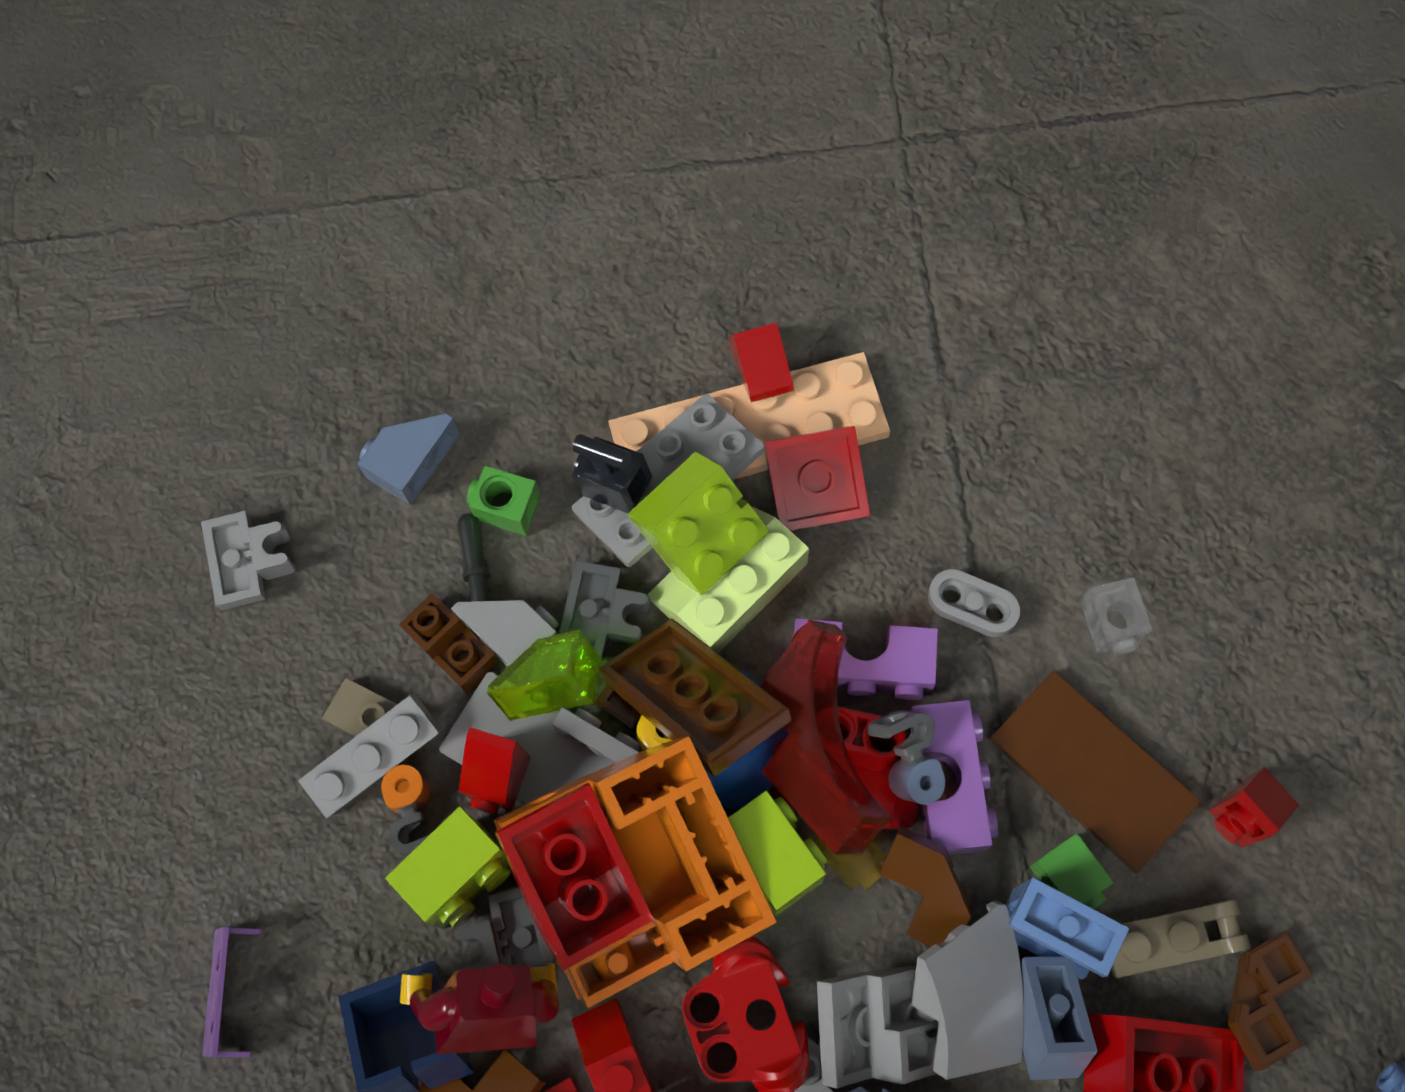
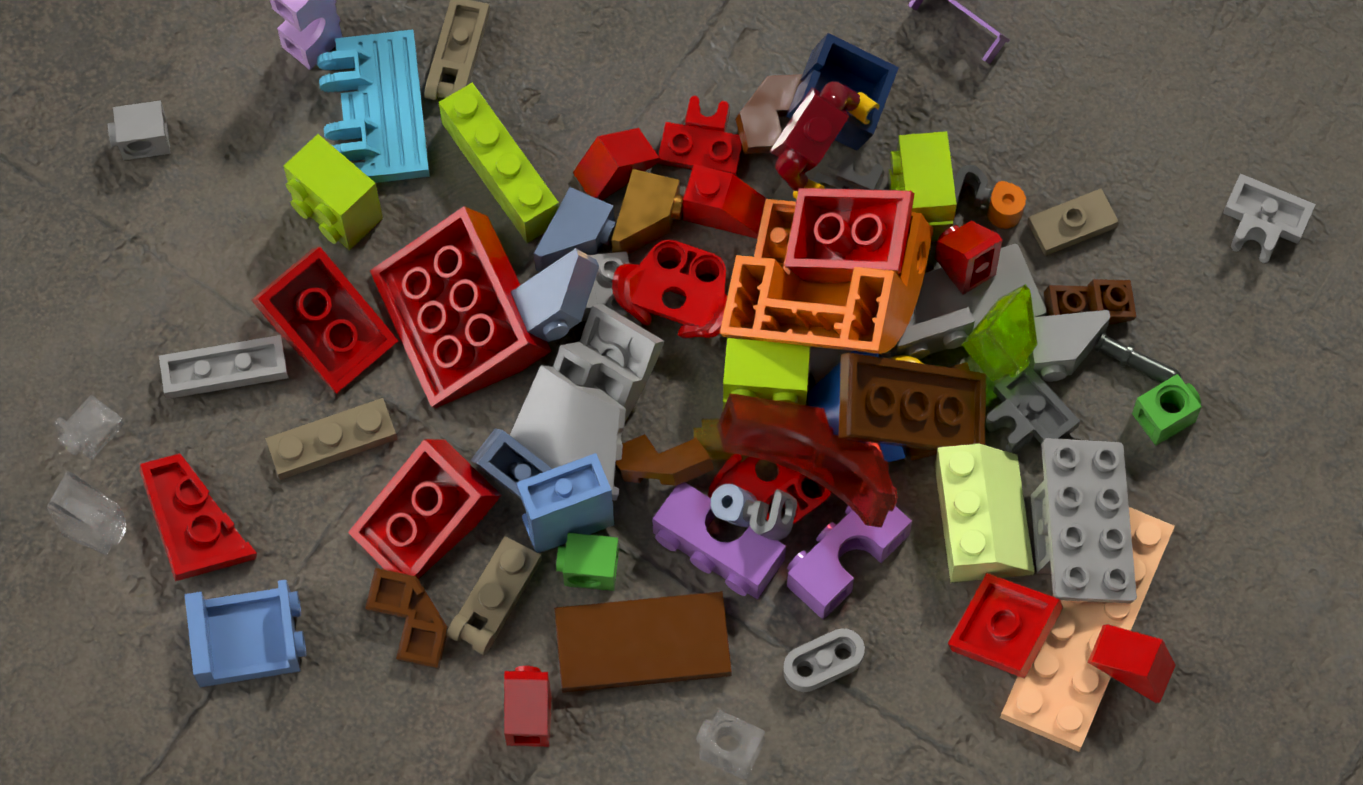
camera: 125 degrees right, 5 degrees down
(370, 755) = (1047, 197): light grey plate -> none
(408, 454) = (1256, 368): sand blue slope -> none
(610, 472) = (1118, 469): black brick -> none
(698, 522) = (1031, 498): lime piece -> none

